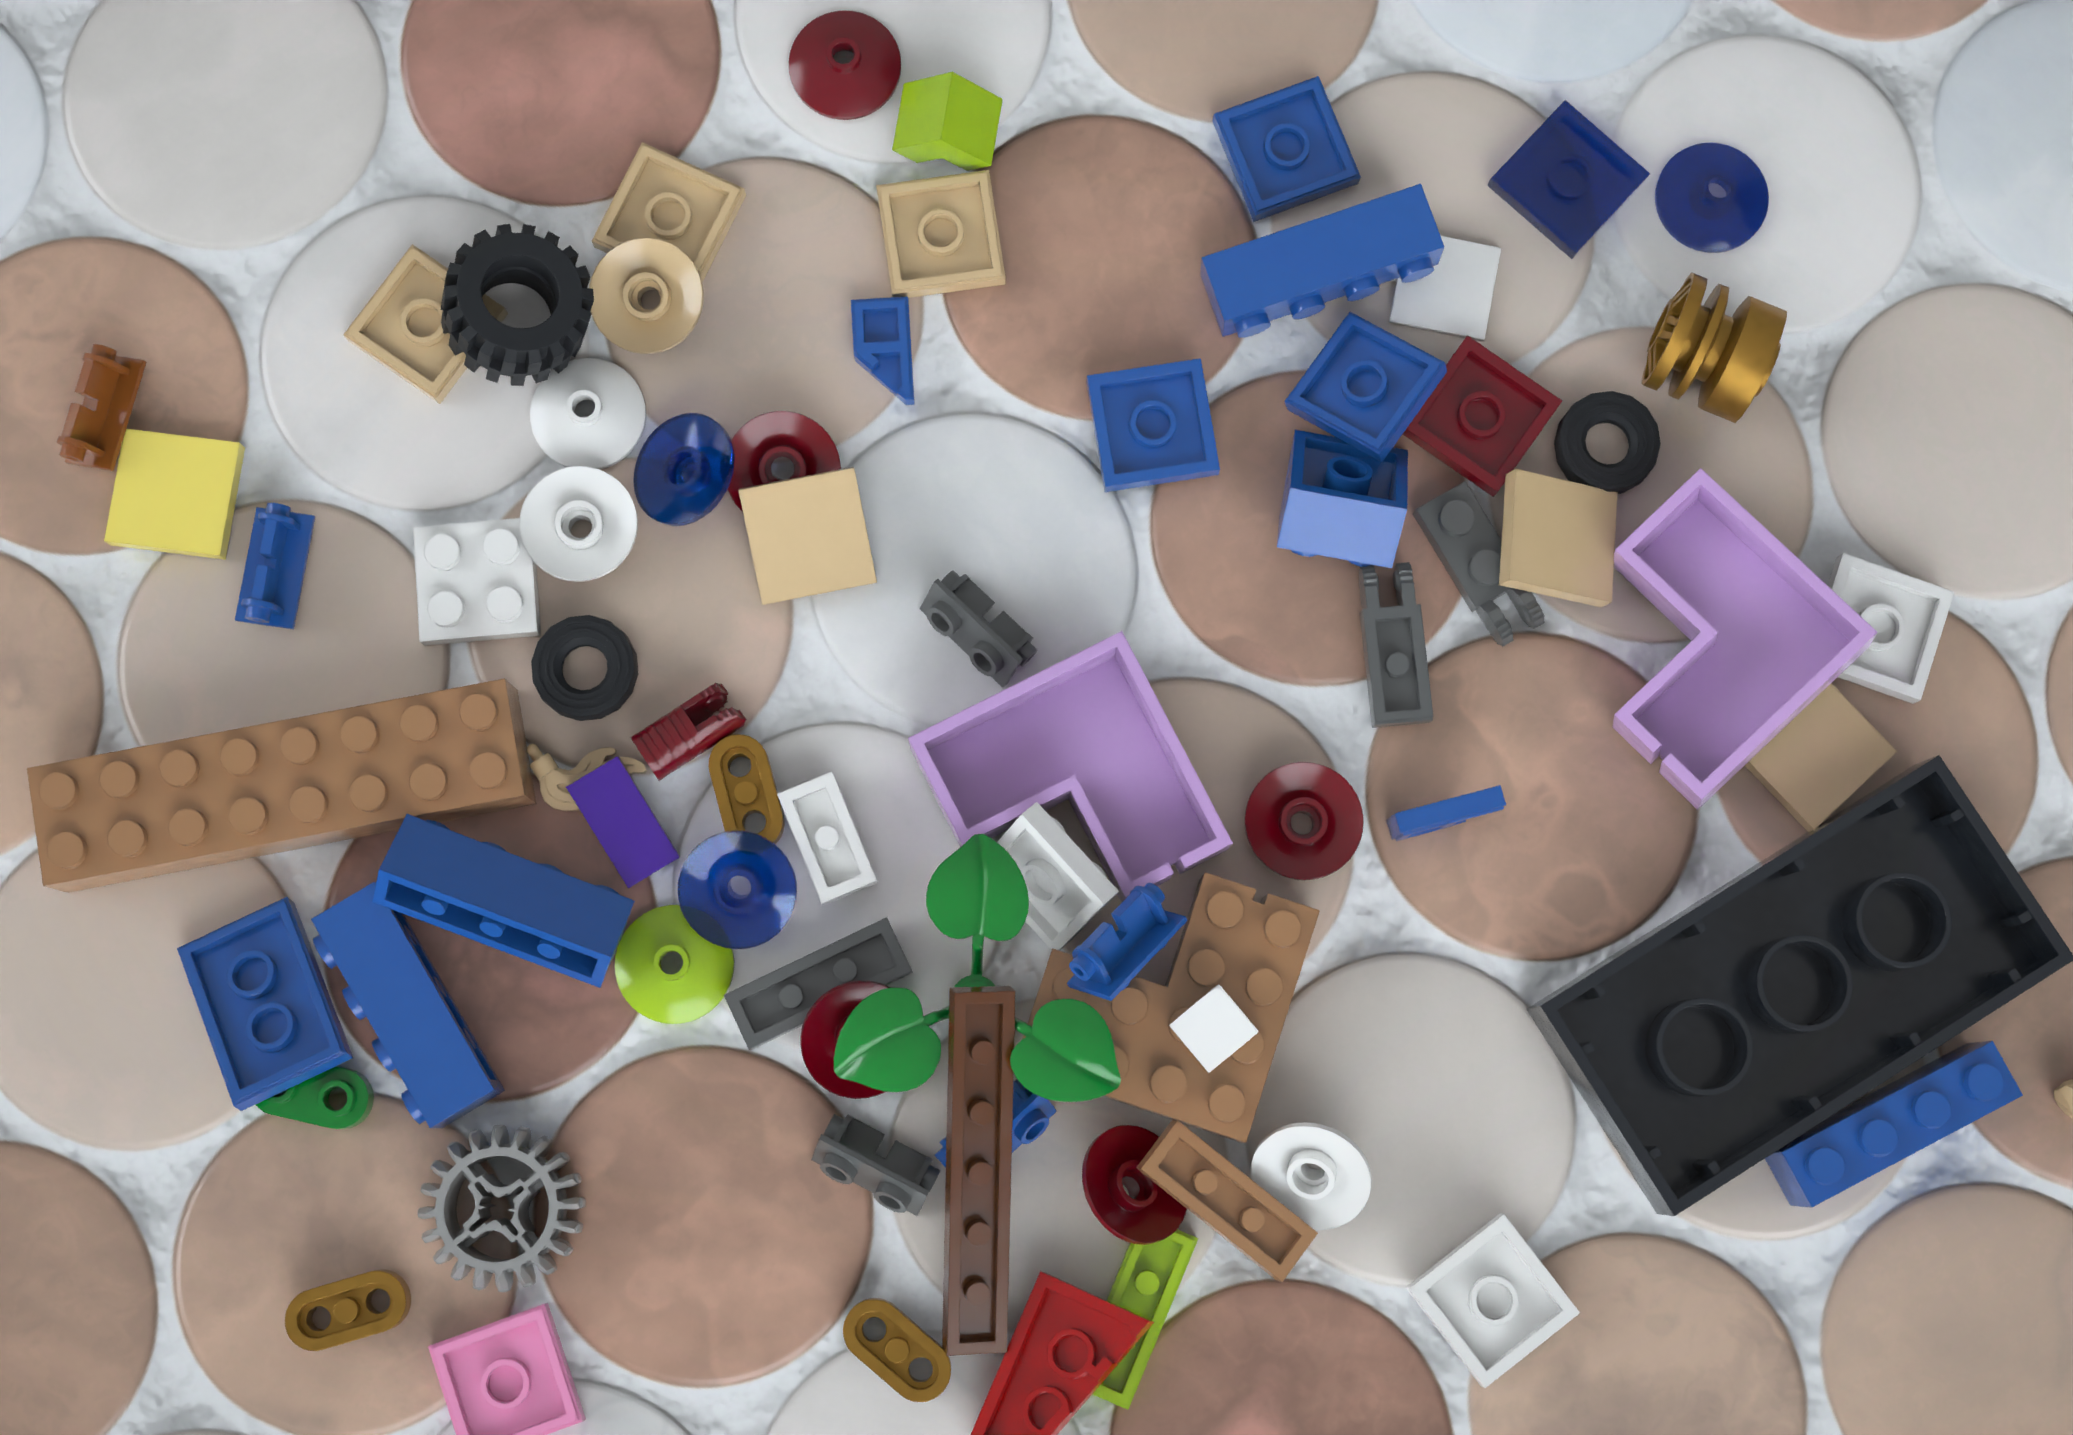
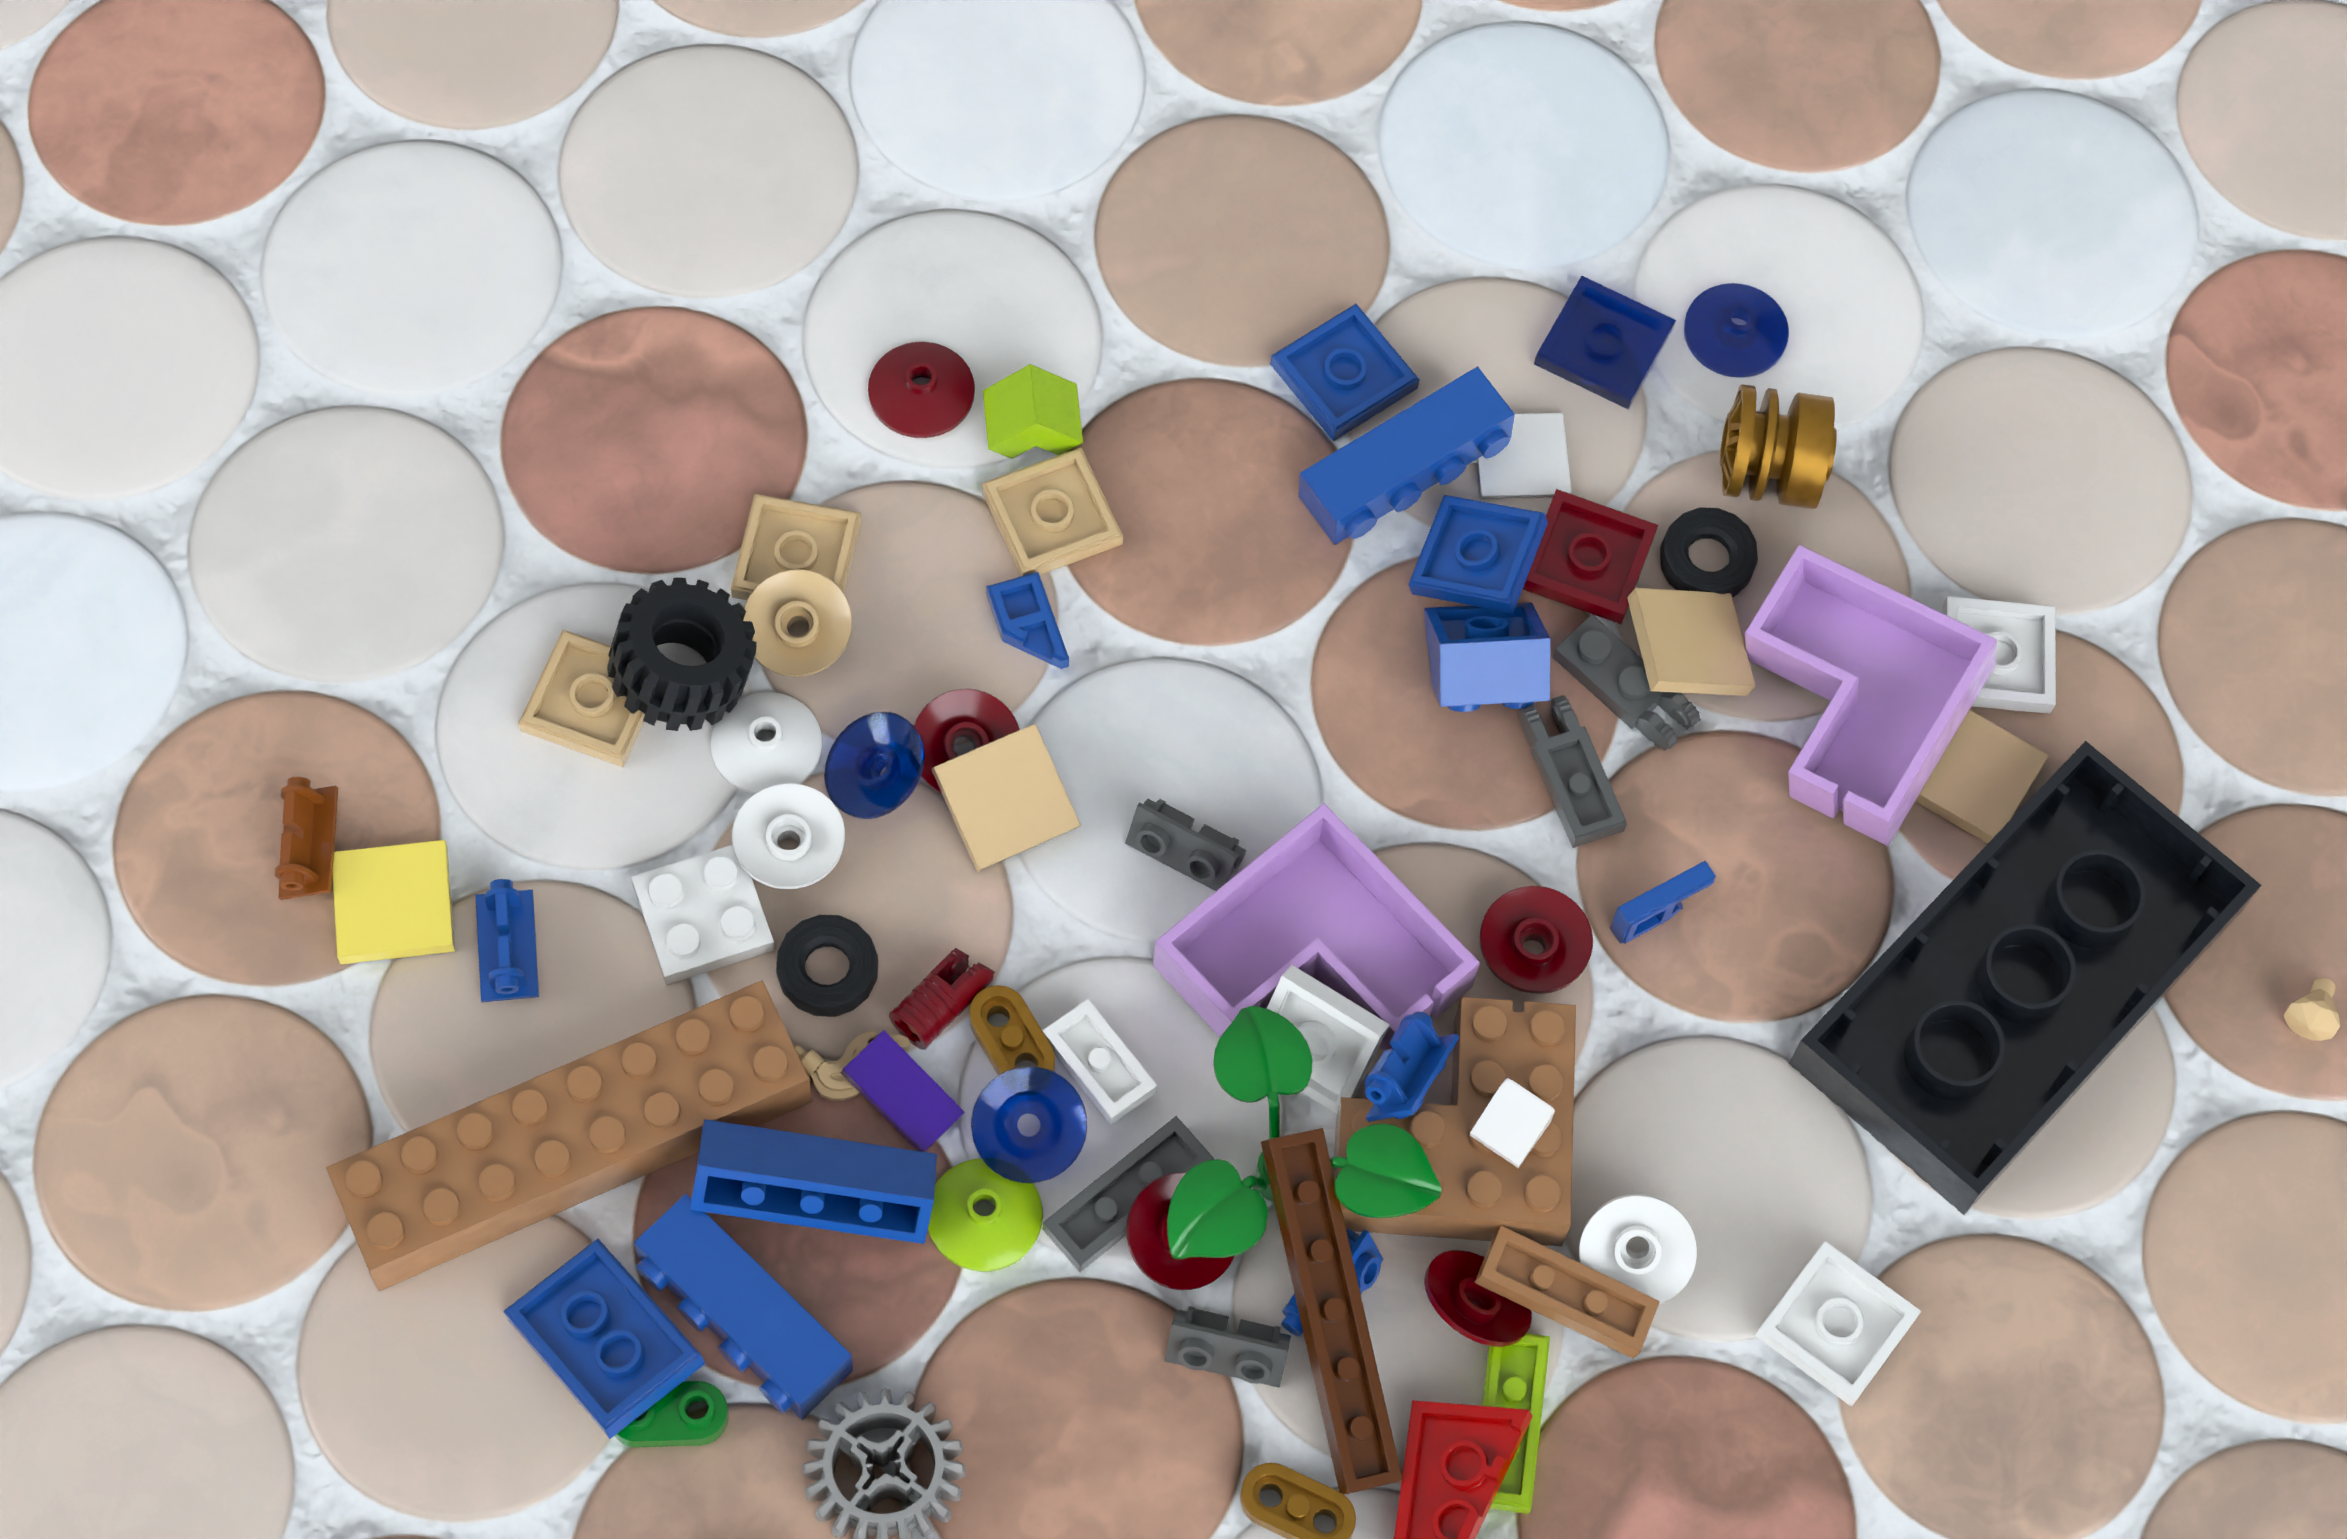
camera: 15 degrees left, 15 degrees down
(1152, 425) = (1295, 631): blue plate -> none
(1893, 1123) = (2146, 1075): blue brick -> none

